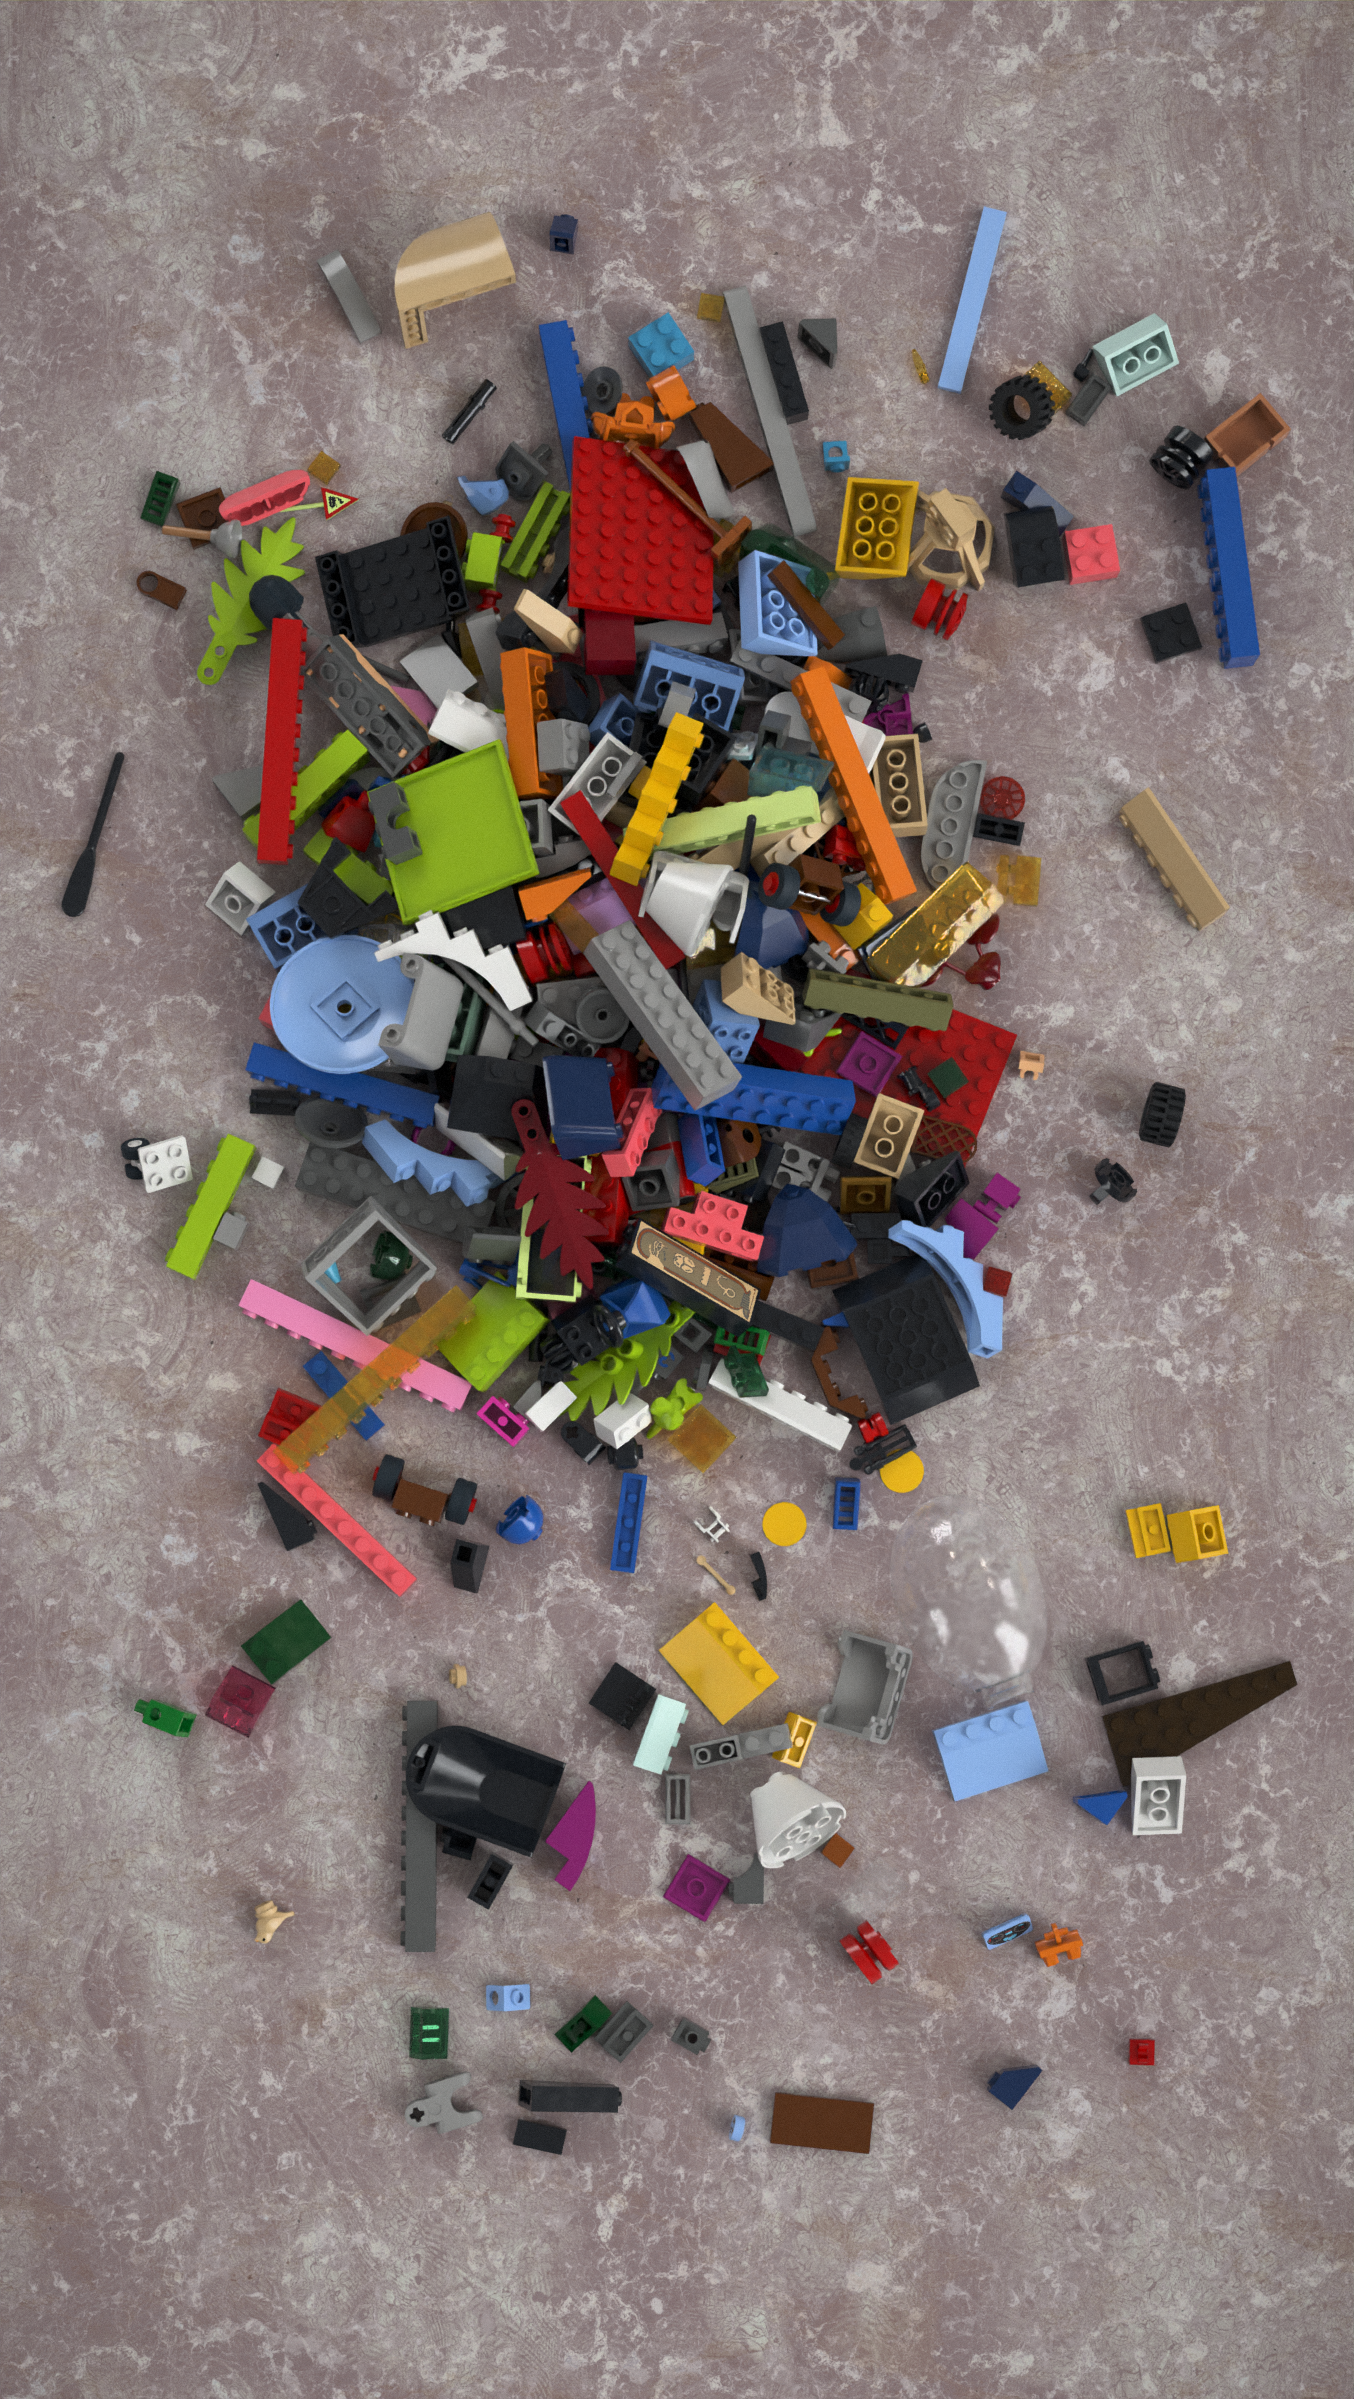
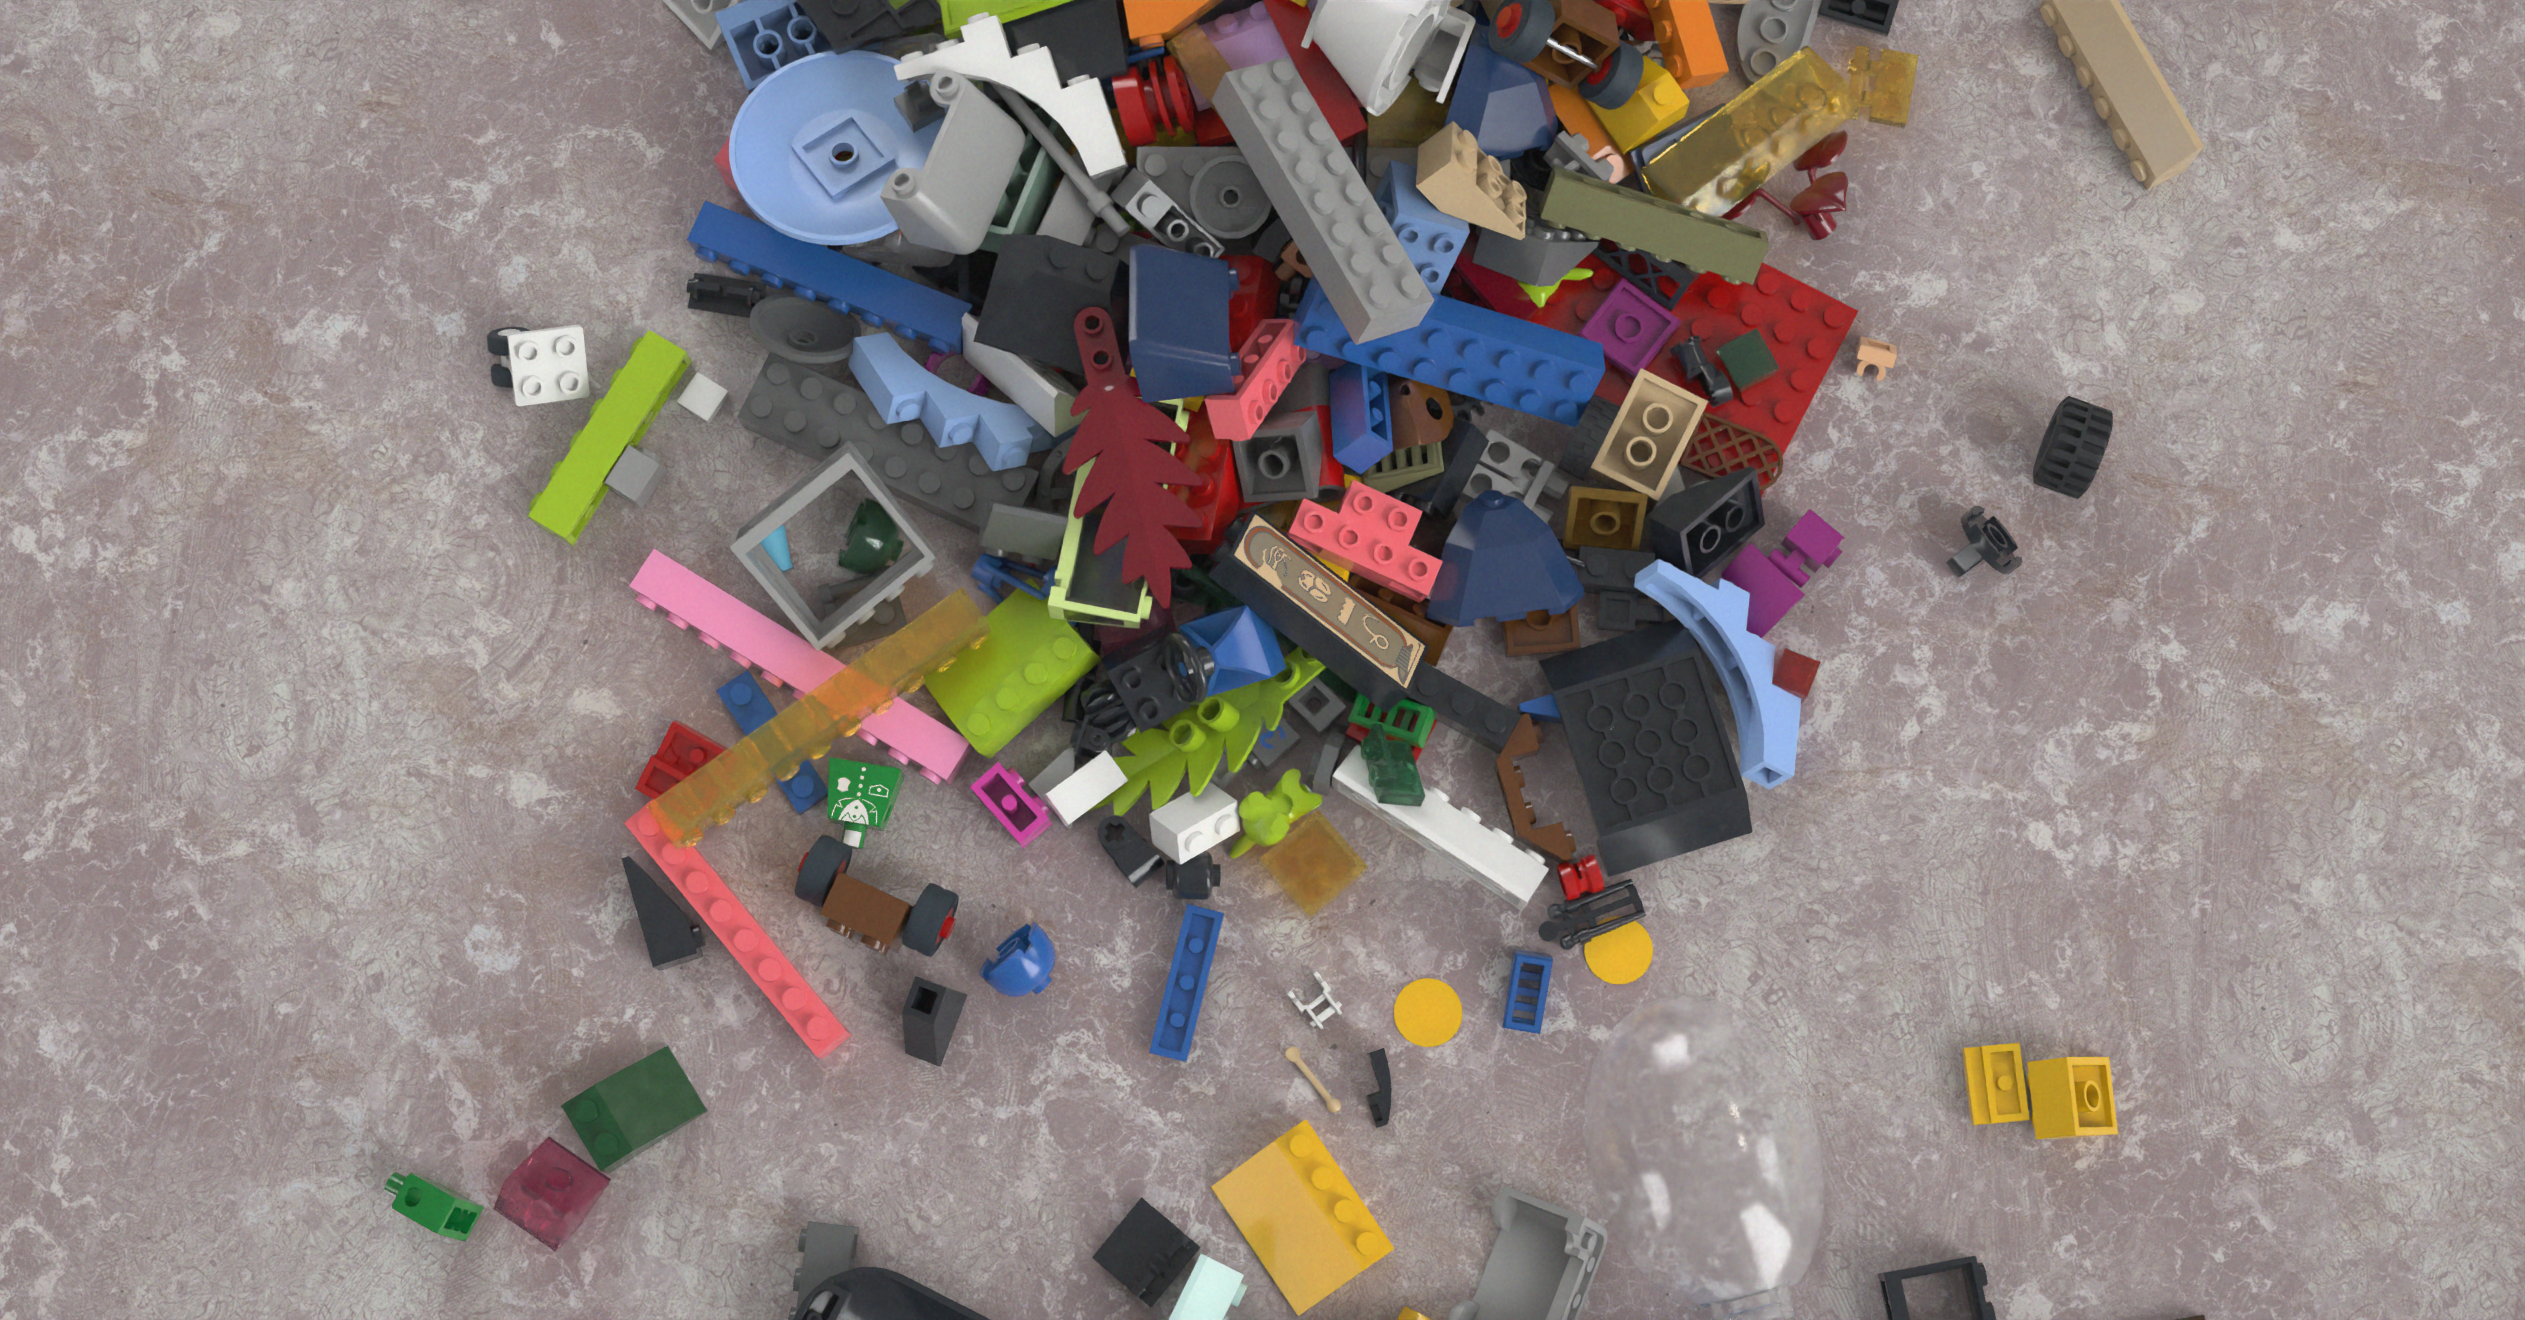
camera: 15 degrees right, 5 degrees down
(390, 972) = (918, 106): none -> dark grey tile
(405, 1426) = (861, 797): none -> green torso
(458, 1676) = (893, 1191): tan plate -> none

